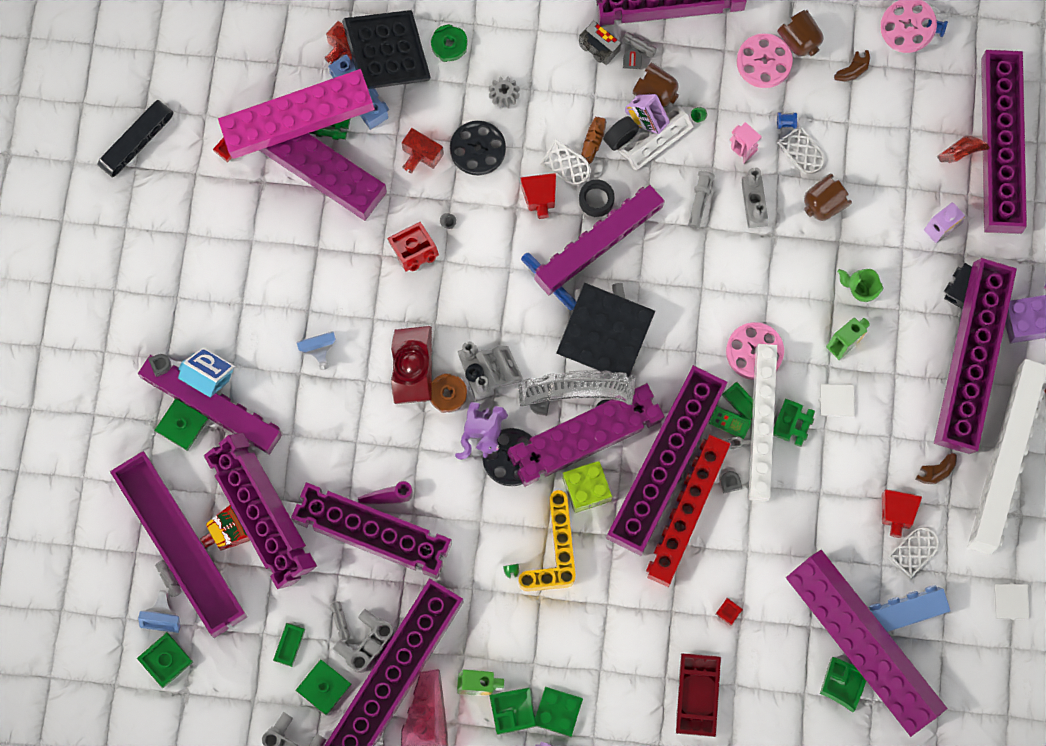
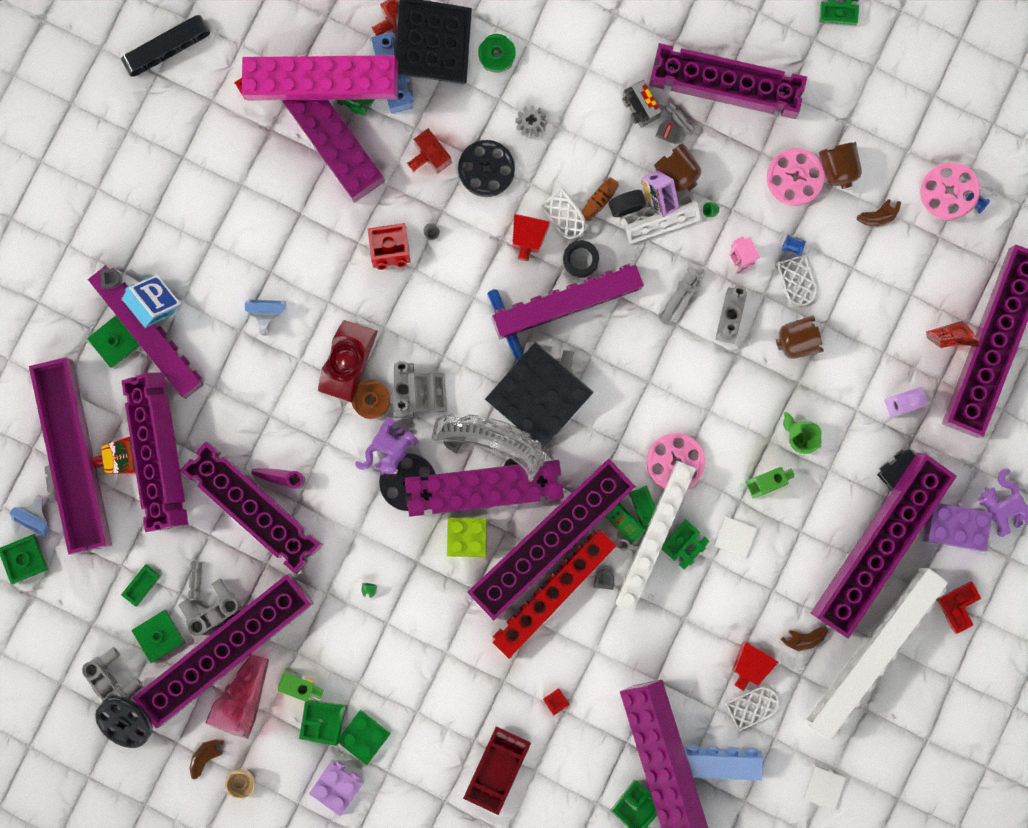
camera: 25 degrees right, 10 degrees up
(478, 373) = (404, 393): black plate -> none
(559, 548) = (419, 586): yellow beam -> none

